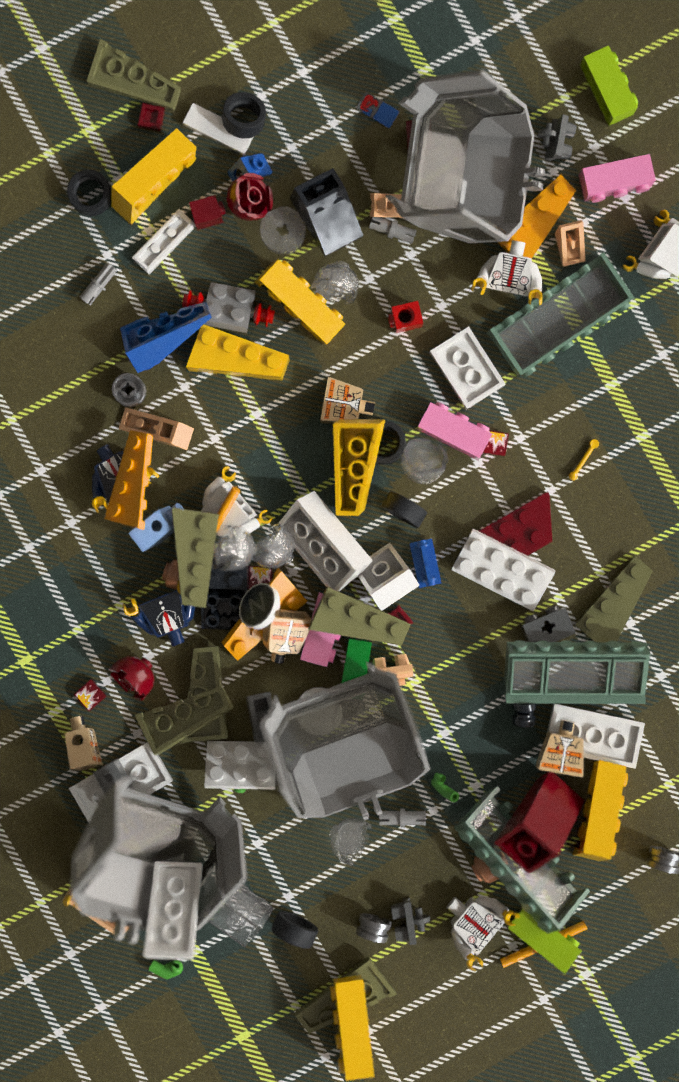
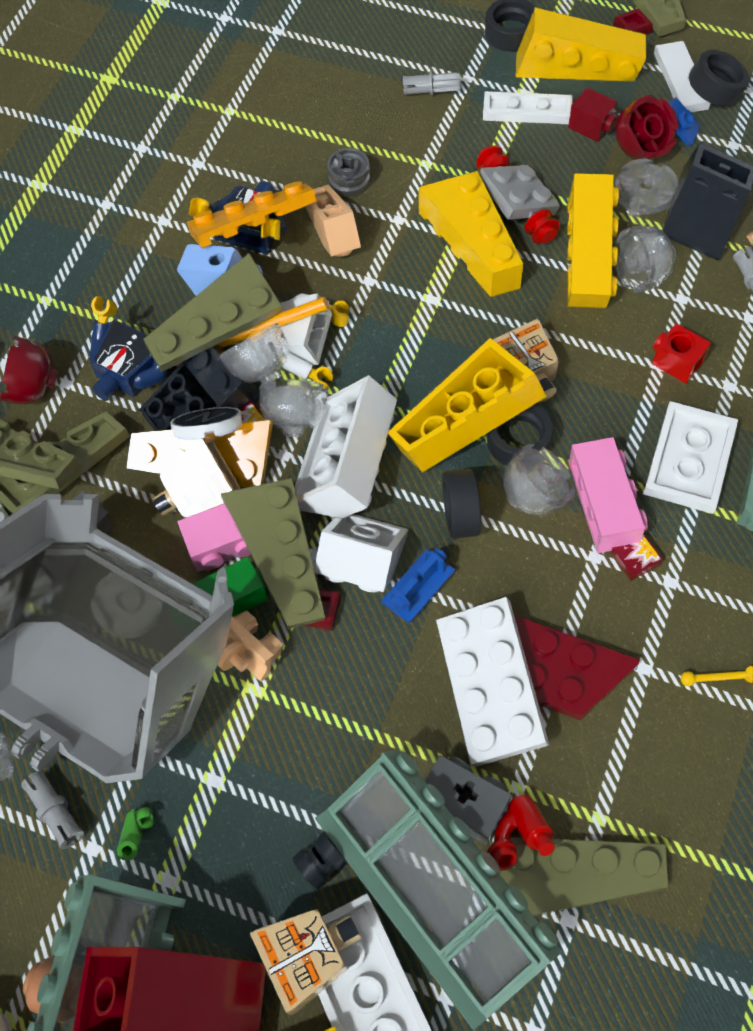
camera: 55 degrees right, 25 degrees down
(153, 340) = (414, 152): blue wedge -> none
(578, 607) = (527, 818): none -> red plant

